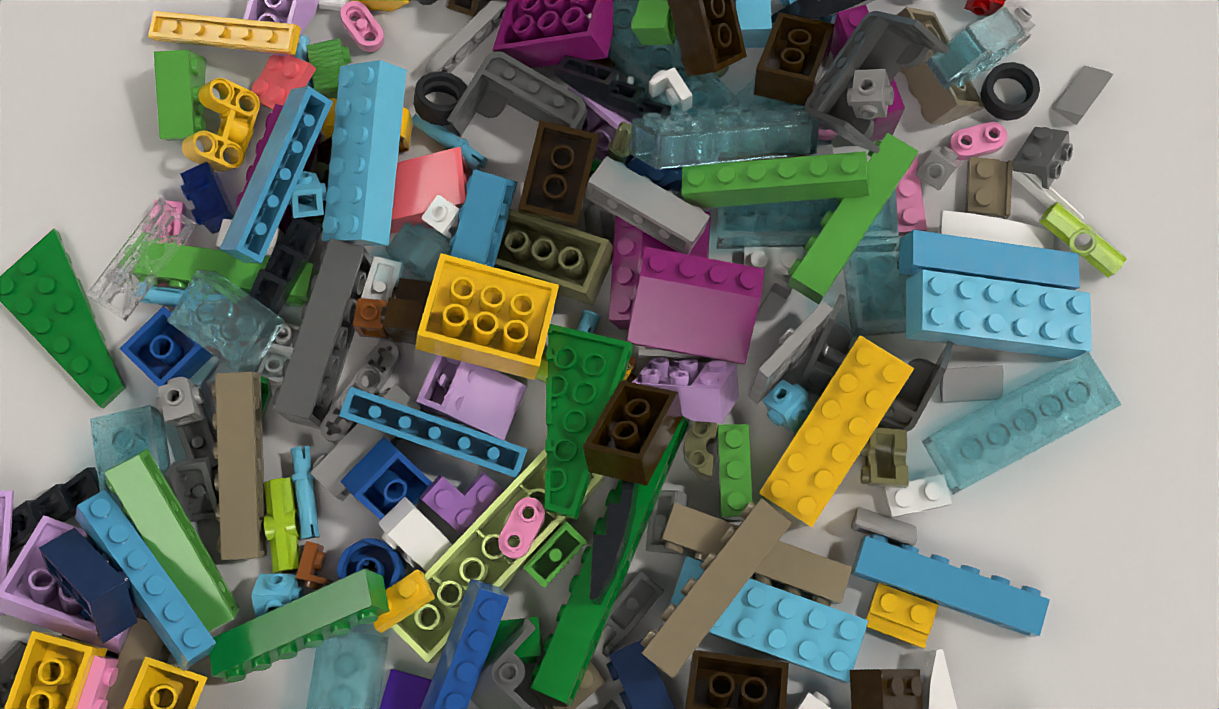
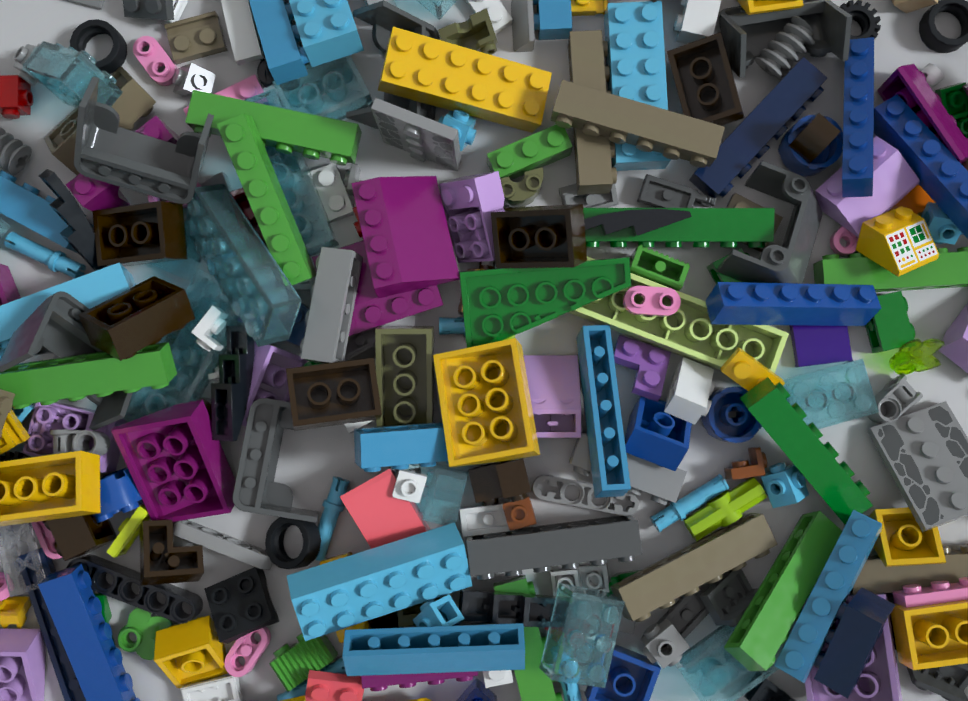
camera: 115 degrees left, 10 degrees up
(404, 33) = (241, 605): none -> black brick
(620, 147) = (283, 354): olive axle -> none
(870, 94) = (157, 141): light grey brick -> none

